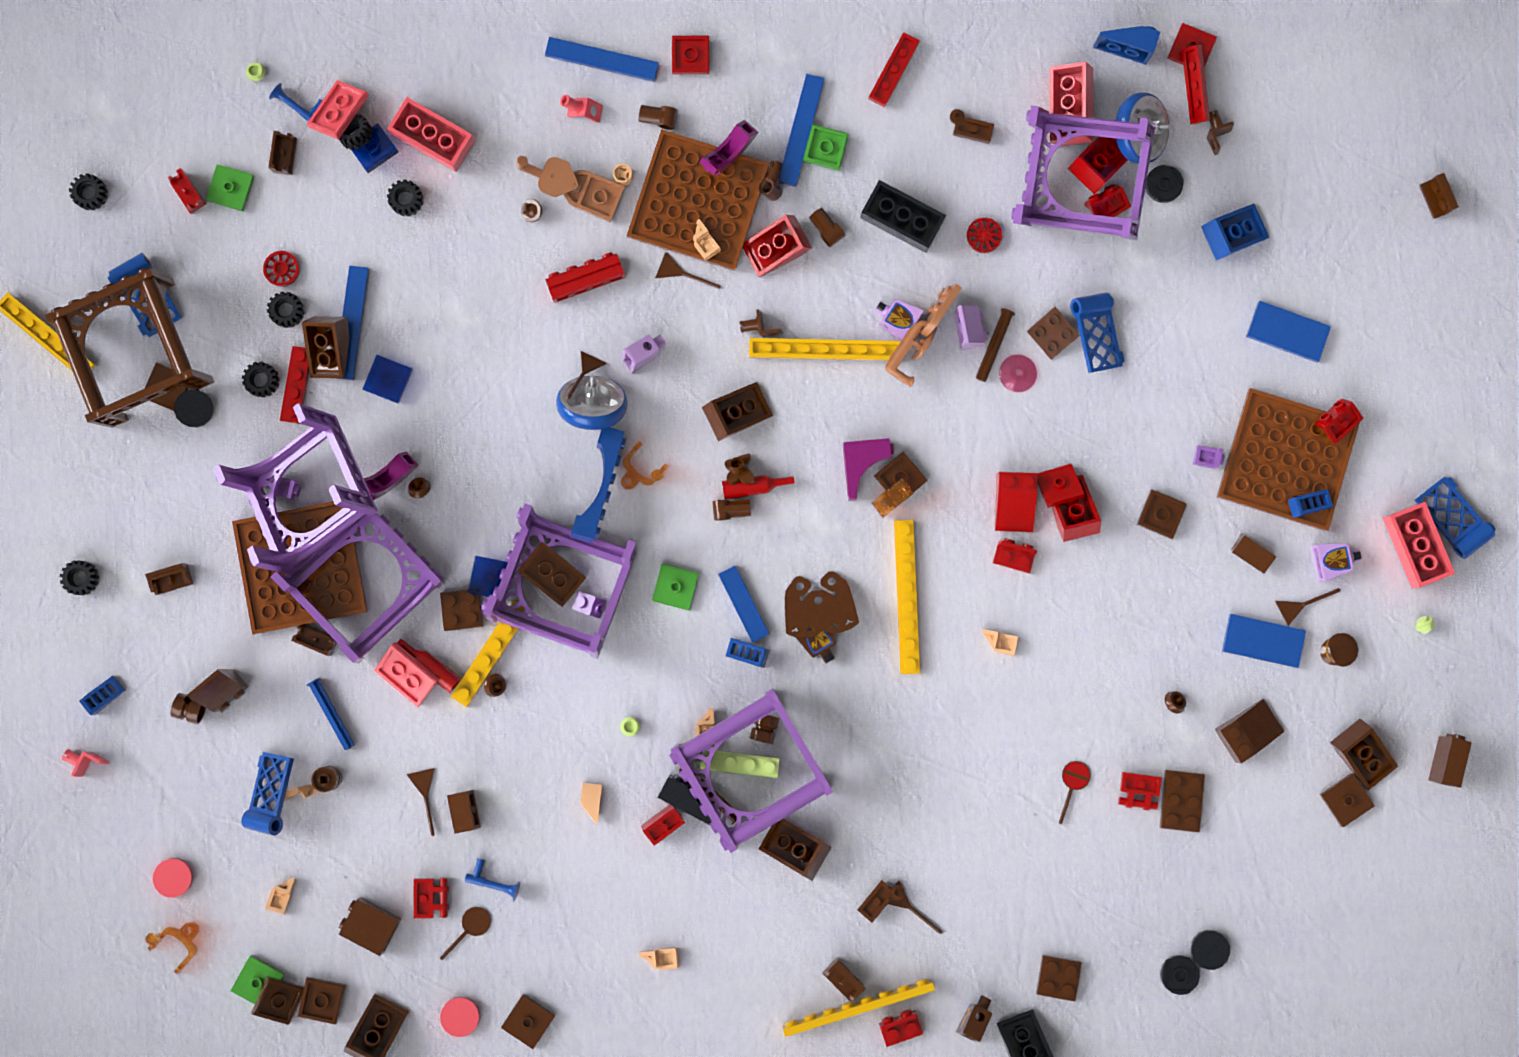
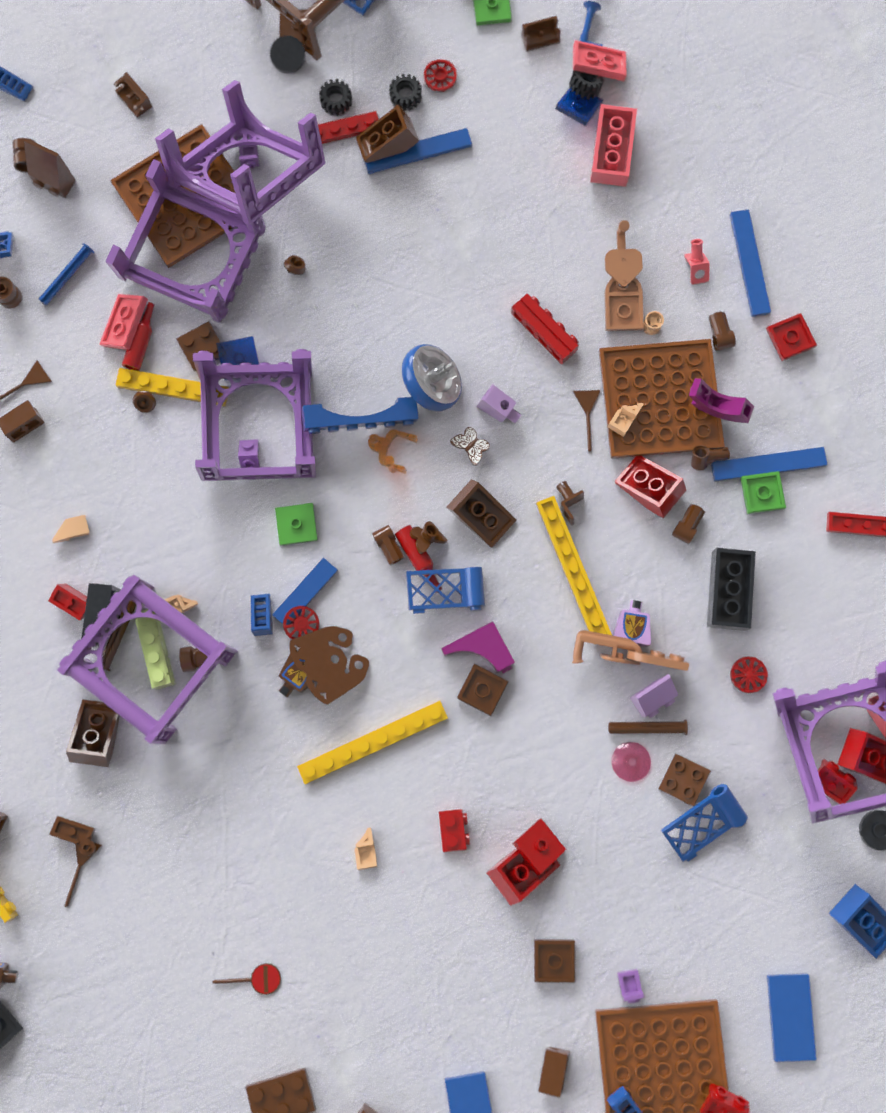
camera: 75 degrees right, 5 degrees down
(87, 586) = (102, 16): black tyre -> none
(314, 639) = (123, 229): reddish brown hinge -> none
(387, 379) = (380, 200): clear blue plate -> none
(391, 475) = (290, 234): magenta arch -> none
(400, 187) = (551, 139): black tyre -> none
(531, 210) = (585, 258): hat -> none
(551, 574) = (262, 408): reddish brown plate -> none
(588, 364) = (468, 364): reddish brown piece -> none
(630, 726) = (152, 536): yellowish green plate -> none
(669, 393) = (471, 444): none -> animal
(770, 619) = (300, 623): none -> red wheel
(807, 451) = (470, 585): none -> blue piece
(892, 498) = (460, 689): clear orange slope -> none
(971, 128) = (845, 619): reddish brown hinge -> none
(1015, 501) = (506, 810): red slope -> none
(1058, 978) = (62, 1042): reddish brown plate -> none
(1139, 784) = (280, 1049): red plate -> none
(1175, 702) = (374, 1050): reddish brown hat -> none

